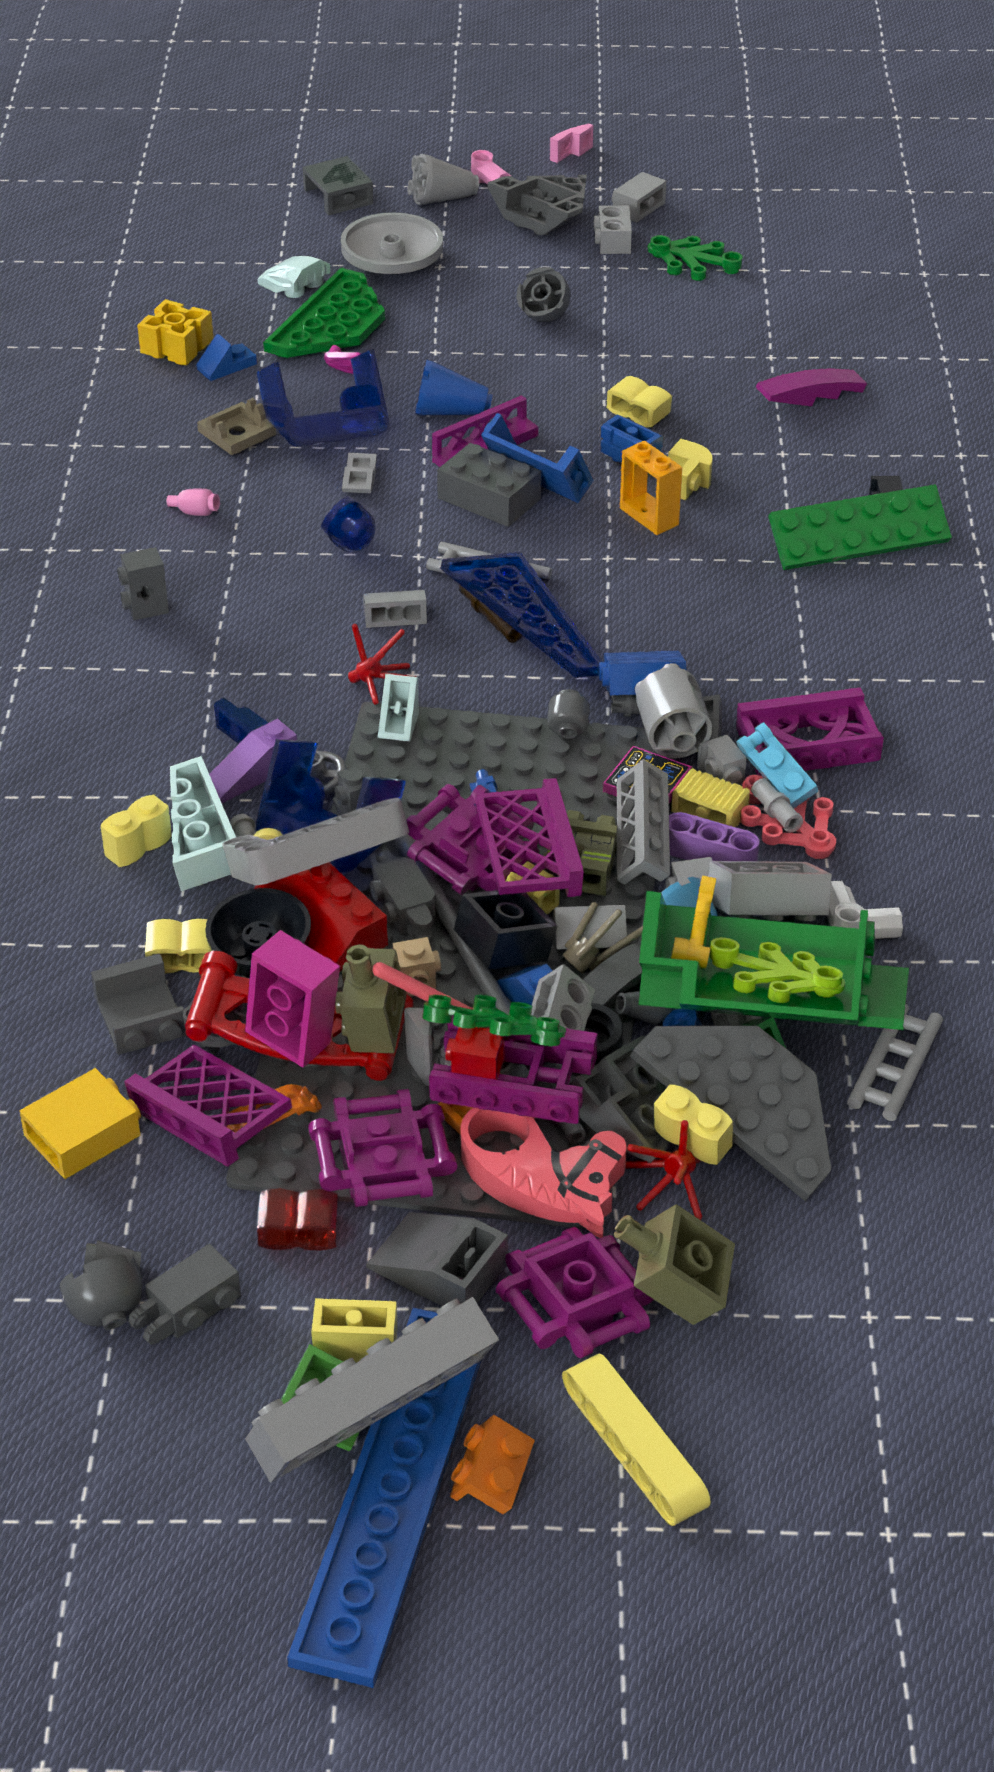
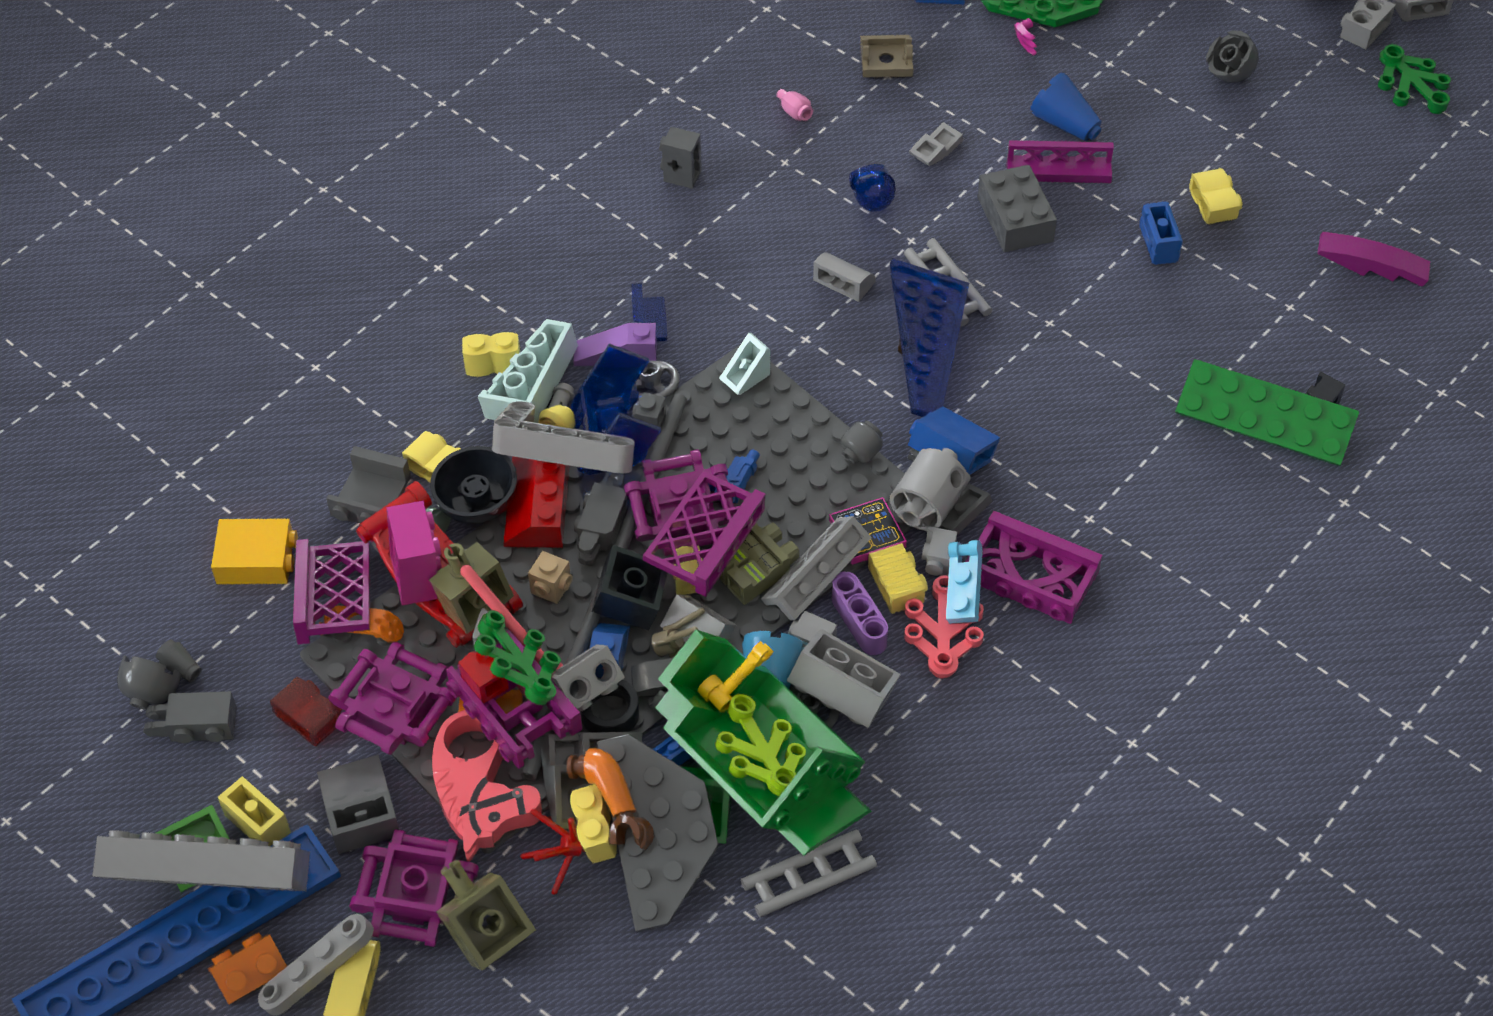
camera: 40 degrees right, 10 degrees up
(361, 412) = (954, 91): clear blue windscreen -> none
(370, 667) = (771, 318): red plant -> none
(565, 1411) = (315, 964): none -> light grey plate
(567, 477) = (1075, 230): blue panel -> none
(664, 510) = (1125, 282): light orange window -> none
(678, 1064) = (604, 771): none -> piece
(695, 464) = (1190, 280): light yellow brick -> none
(777, 805) = (934, 613): light grey pin -> none
(846, 913) = (900, 751): white piece -> none

